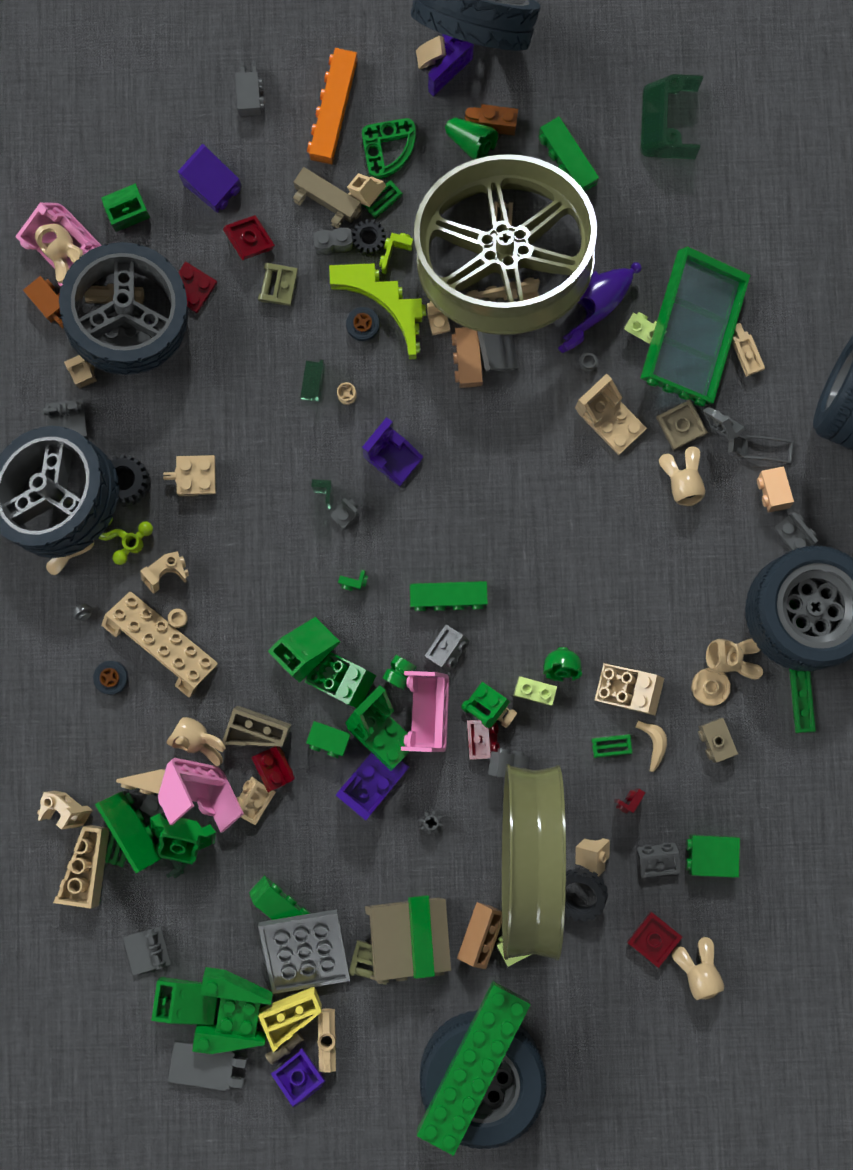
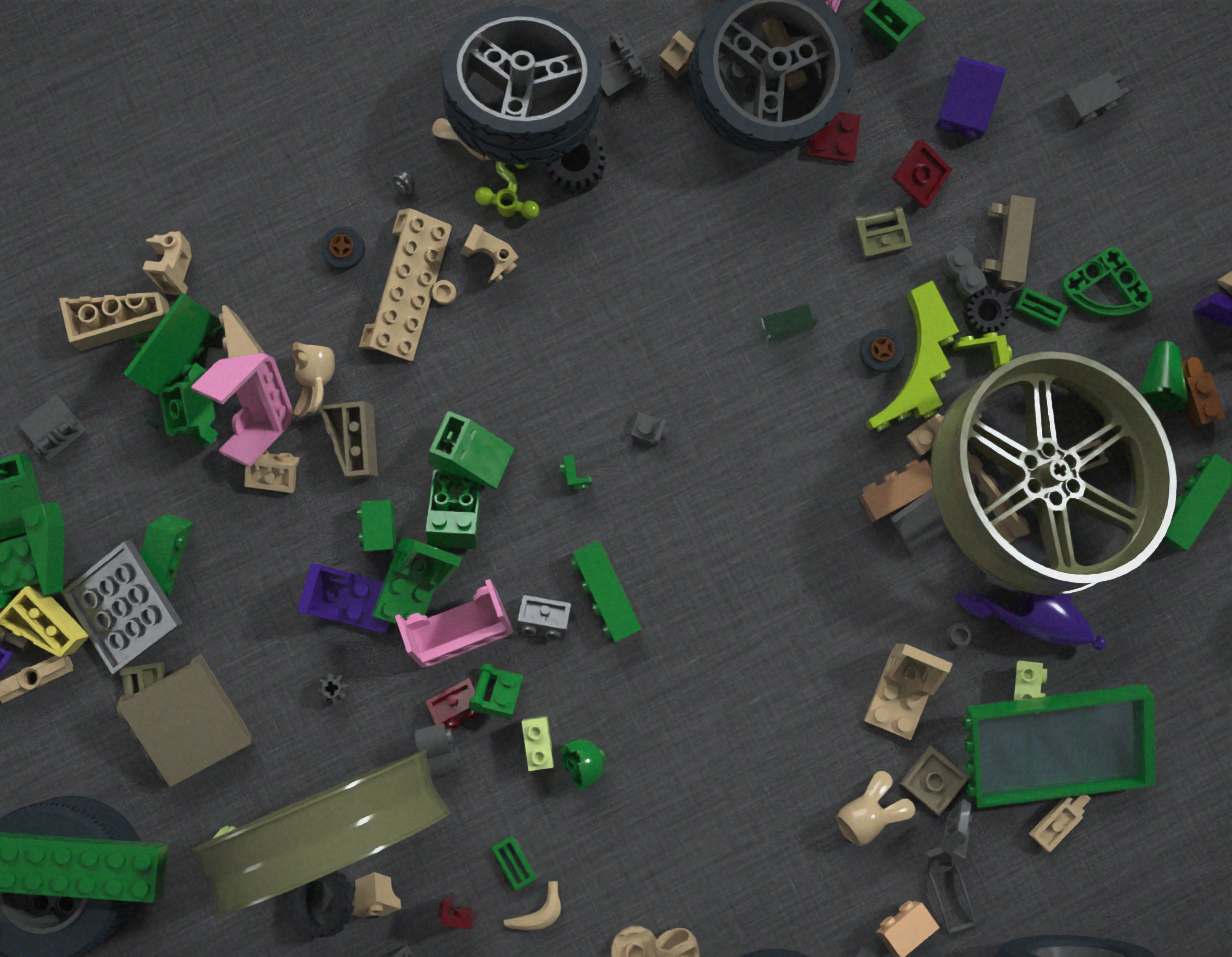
camera: 65 degrees right, 0 degrees up
(194, 475) = (615, 237): tan plate -> none
(273, 768) = (317, 477): dark red bracket -> none
(325, 487) = (668, 391): clear green panel -> none
(333, 106) = (1125, 200): orange brick -> none
(346, 393) = (793, 364): tan wheel -> none
(365, 189) = (1043, 282): tan brick -> none
(391, 453) = (743, 451): dark purple bracket -> none
(396, 673) = (496, 571): green wheel -> none
(421, 936) = (191, 735): green tile -> none
(480, 936) = (224, 804): medium nougat brick -> none
(508, 718) = (493, 725): tan wheel -> none
(629, 689) = (589, 855): tan slope -> none

